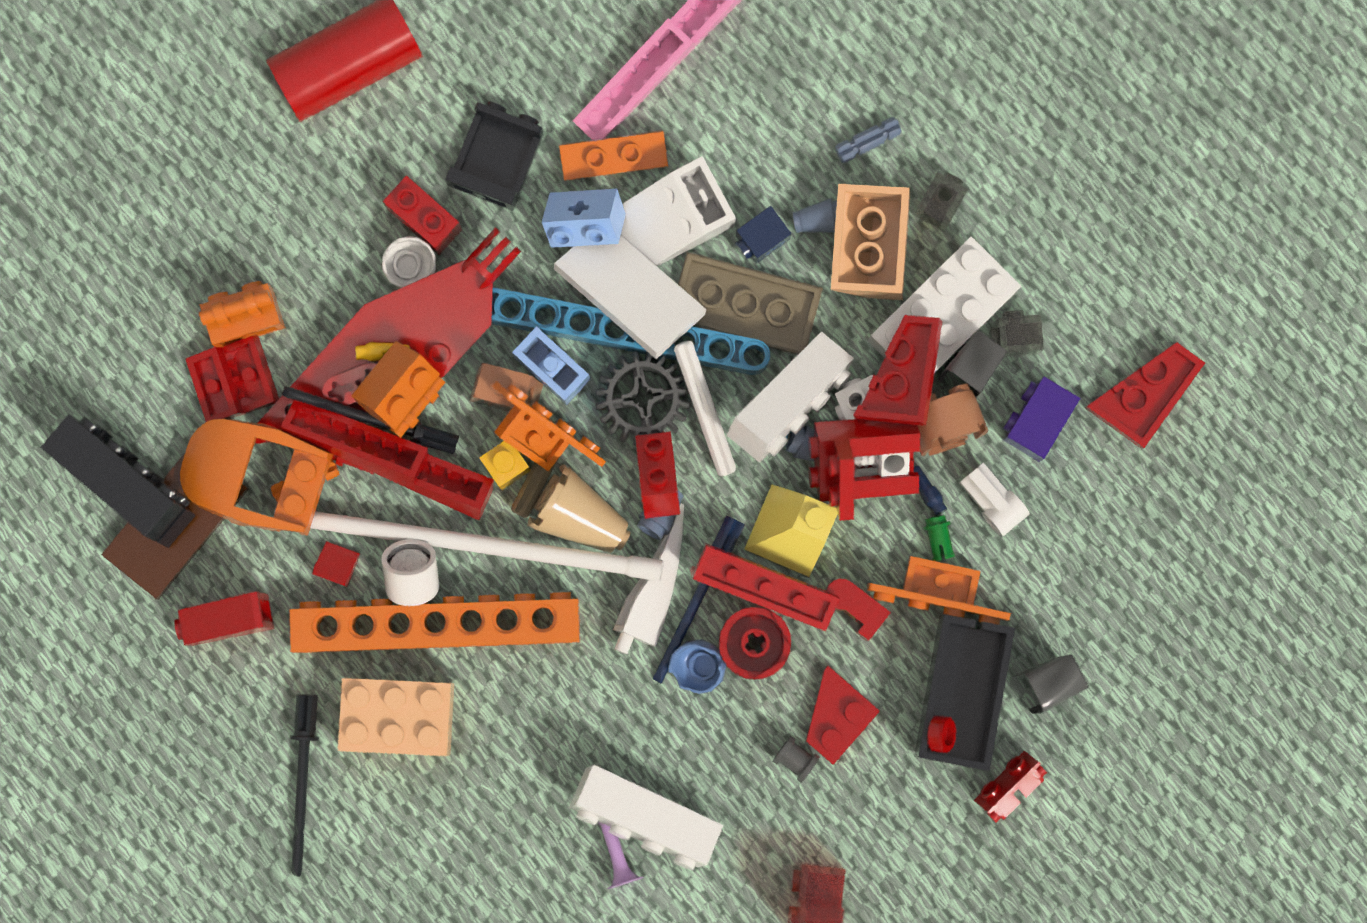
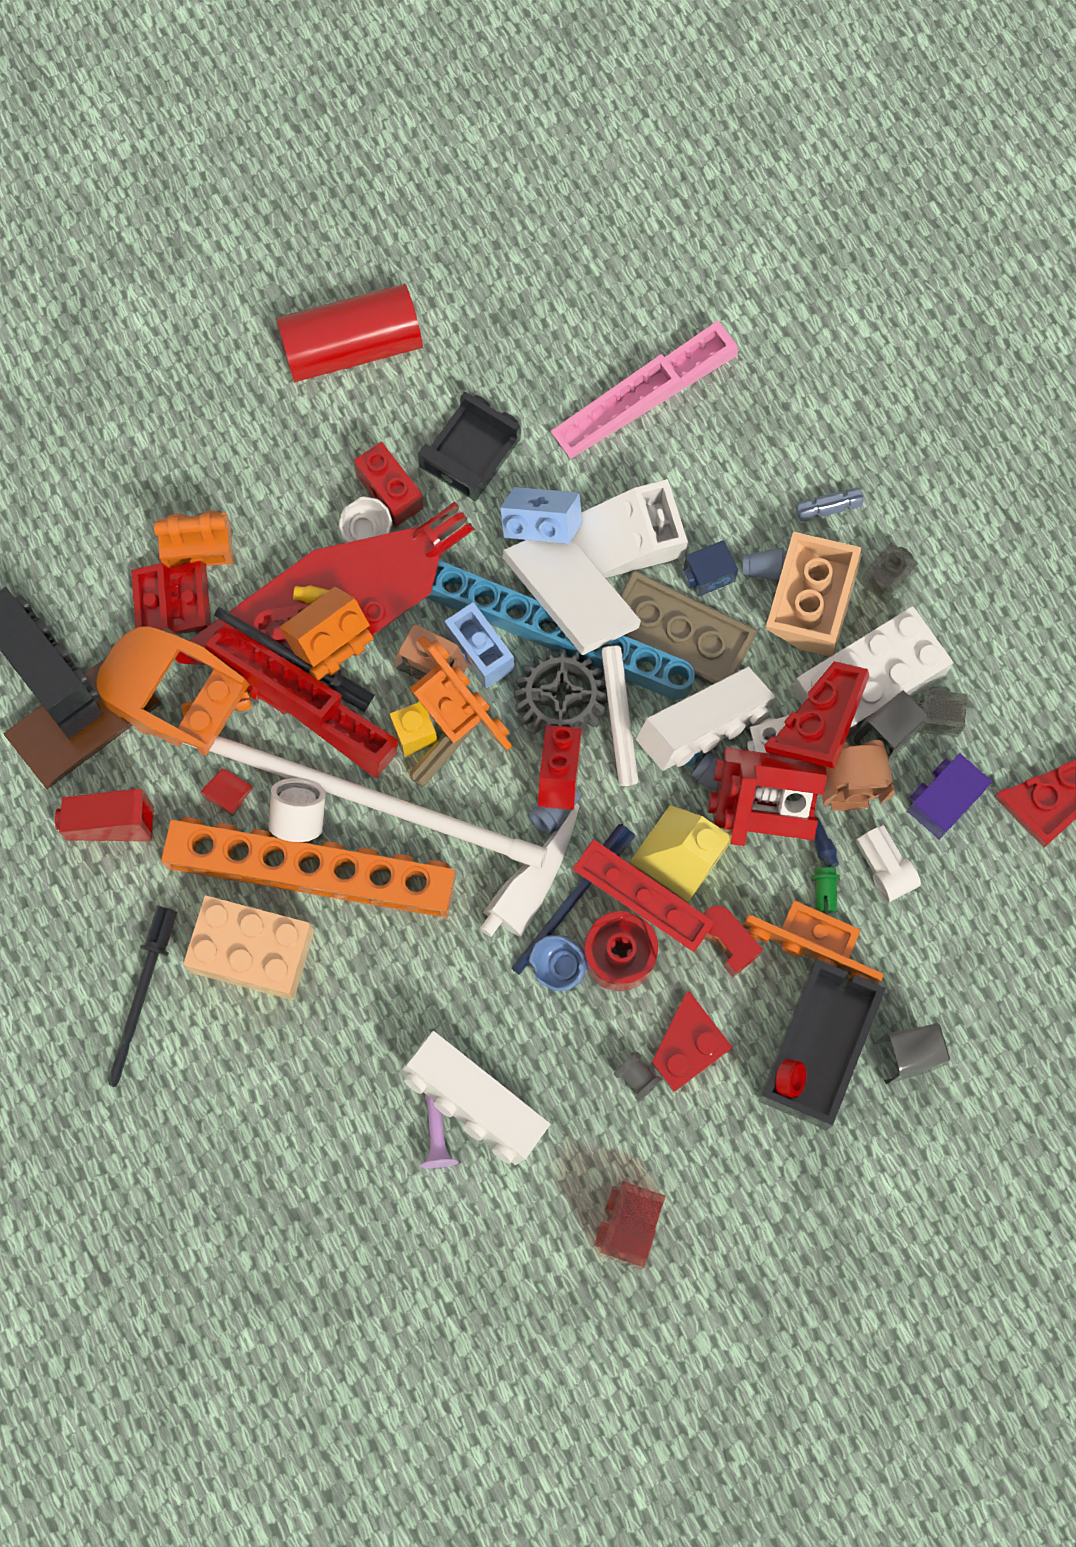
camera: 15 degrees right, 10 degrees down
(578, 514) = (475, 791): tan cone -> none
(613, 155) = (582, 468): orange plate -> none
(998, 796) = (835, 1159): red hinge -> none

